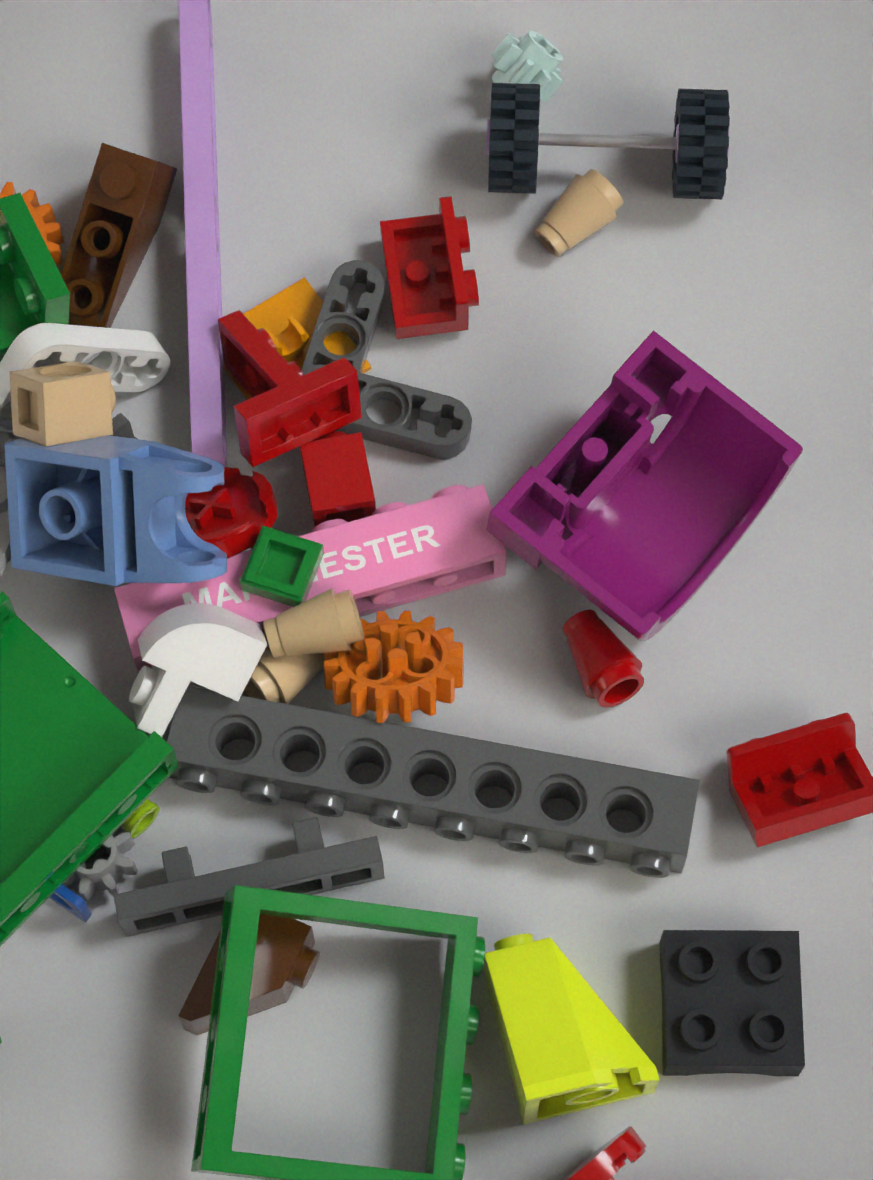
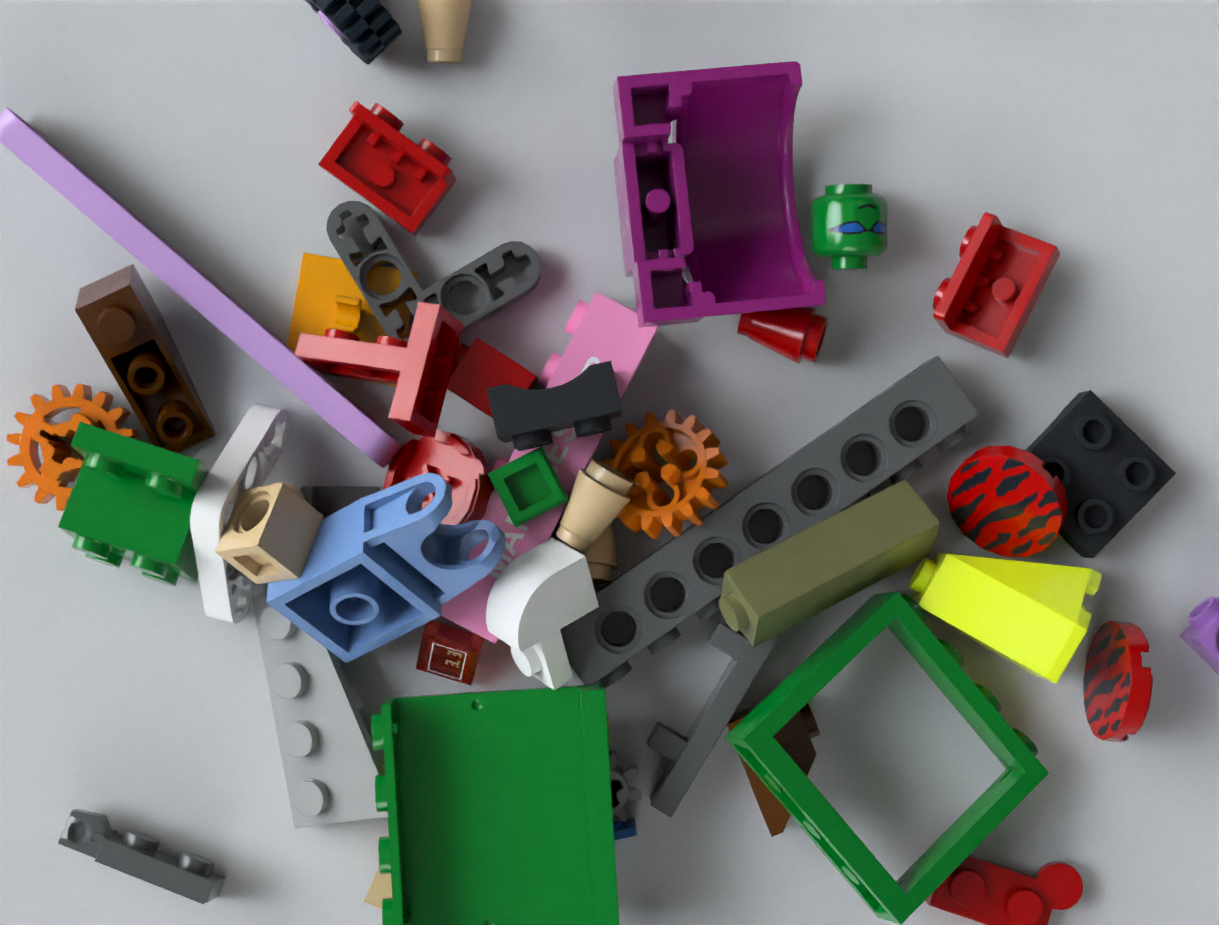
camera: 45 degrees left, 20 degrees up
(93, 641) = (449, 652): none -> clear red tile
(361, 514) = (532, 414): none -> black brick
(447, 845) = (827, 563): none -> olive brick
(641, 950) = (1007, 501): none -> red tile
(730, 627) = (849, 225): none -> green head

